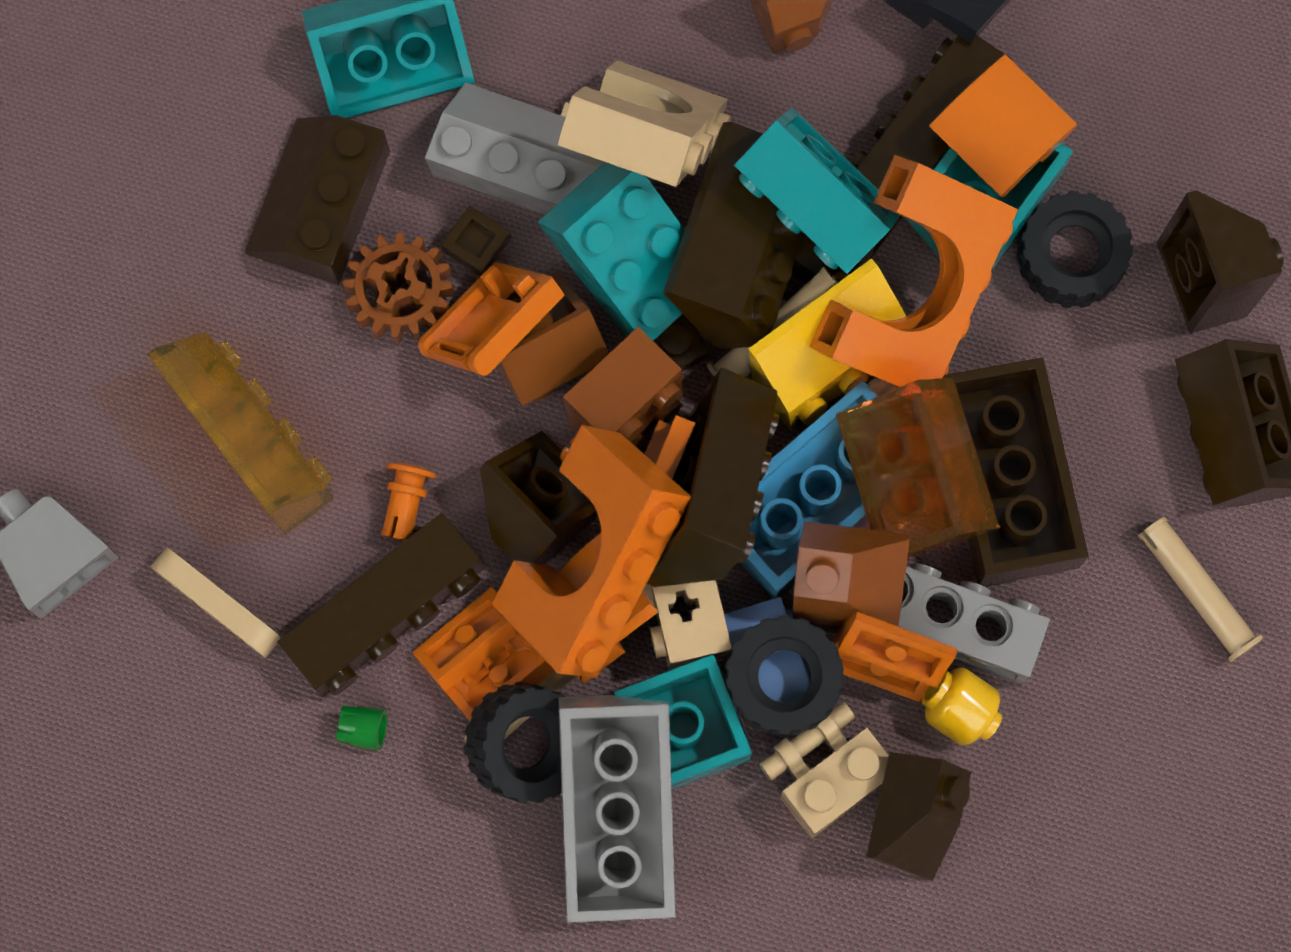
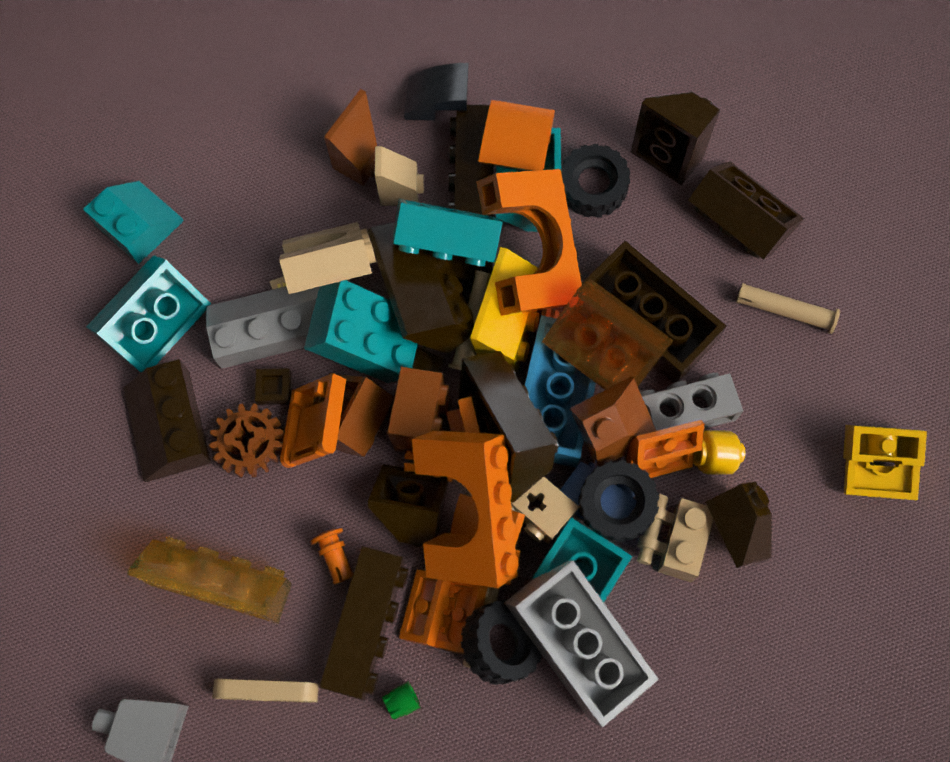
camera: 35 degrees left, 5 degrees down
(816, 76) = (396, 177): none -> tan slope
(1177, 844) = (883, 444): none -> yellow brick

